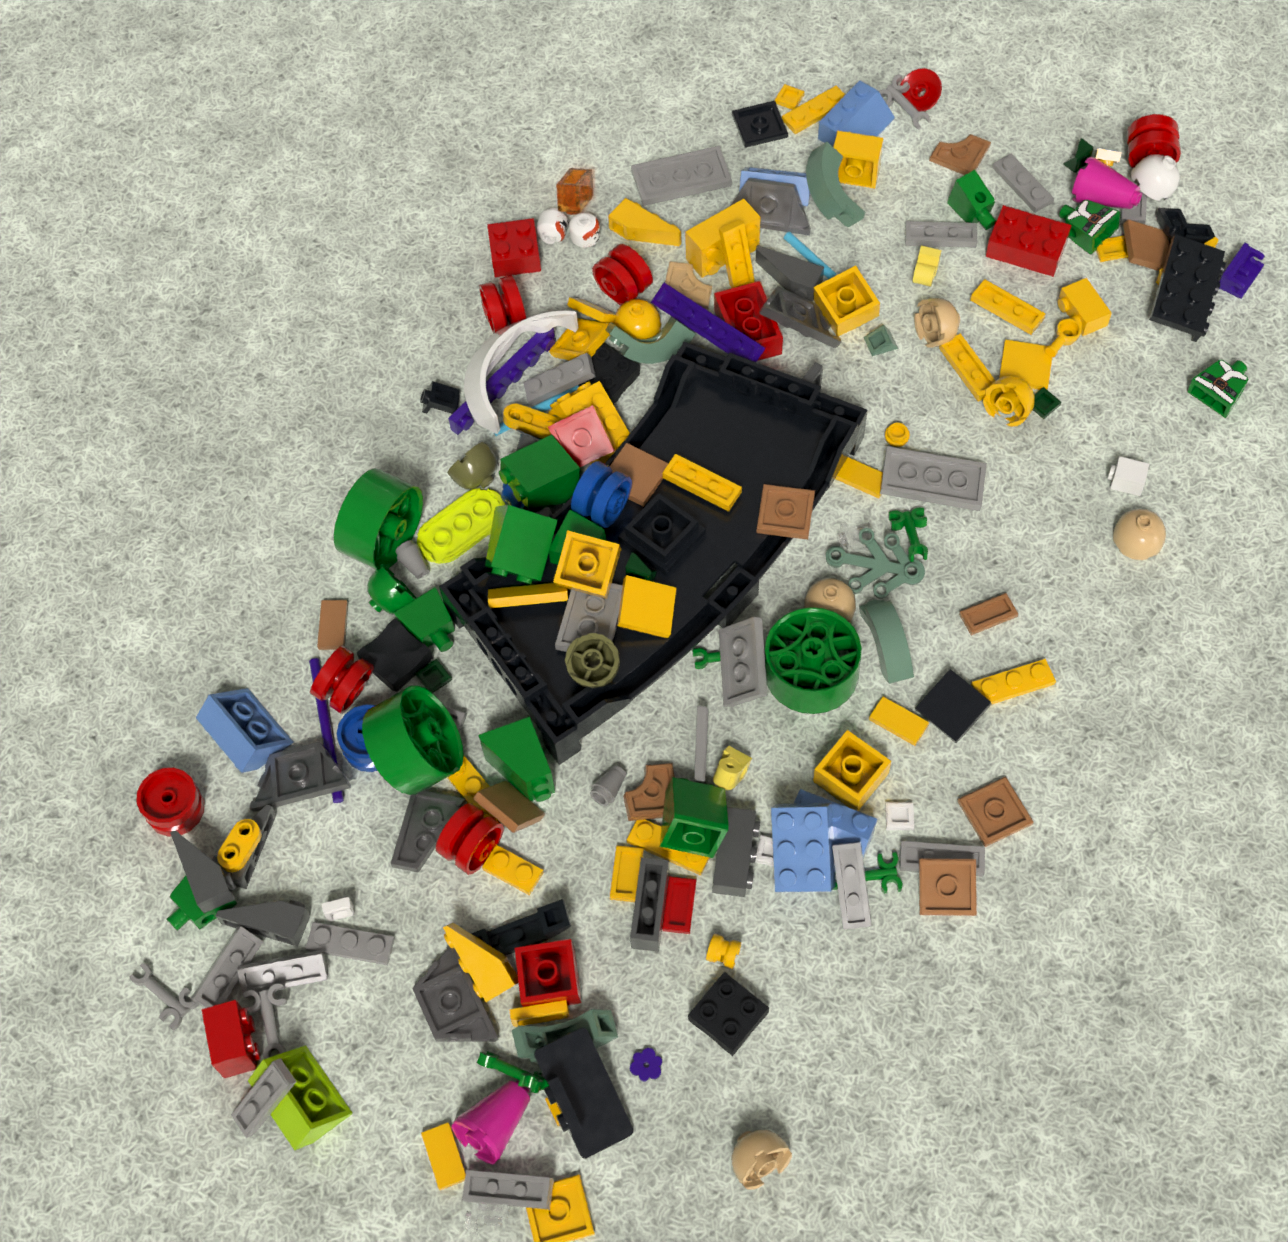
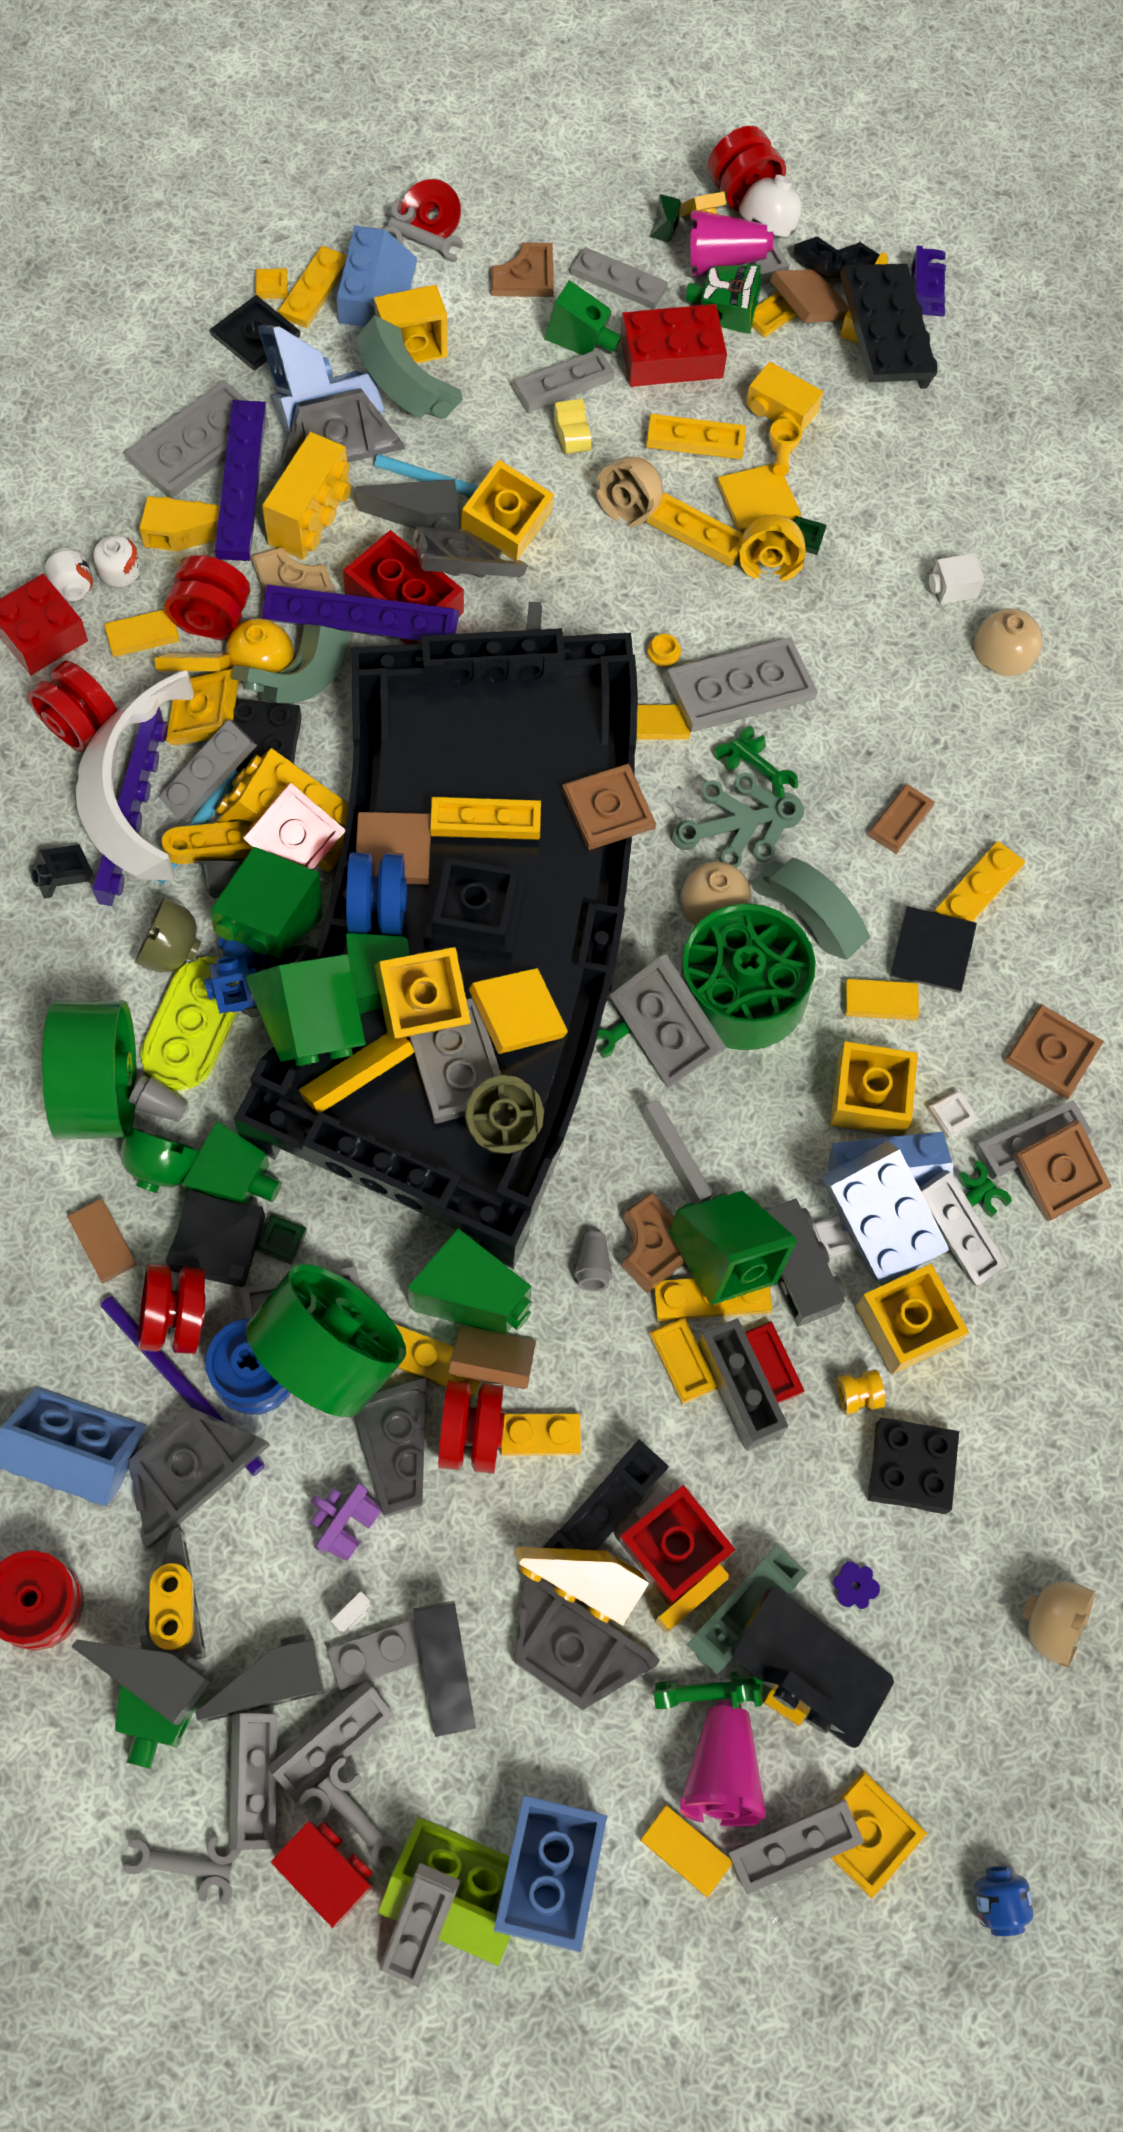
camera: 40 degrees left, 5 degrees up
(354, 1113) = (551, 1874): none -> medium blue slope
(355, 860) = (357, 1506): none -> medium lavender hips
(369, 968) = (444, 1668): none -> black tile
(486, 506) = (229, 984): none -> blue brick
(573, 280) = (141, 633): none -> yellow tile
(574, 190) = (75, 514): clear orange brick -> none
(638, 569) = (478, 968): dark green slope -> none
(687, 211) = (241, 481): none -> dark purple plate
(731, 768) = (732, 1159): light yellow leg -> none
(736, 254) = (342, 508): yellow plate -> none
(763, 151) = (293, 363): none -> slope
(783, 923) = (911, 1319): none -> yellow brick
(880, 341) = (572, 544): sand green slope -> none
(1220, 386) = (990, 428): green torso -> none

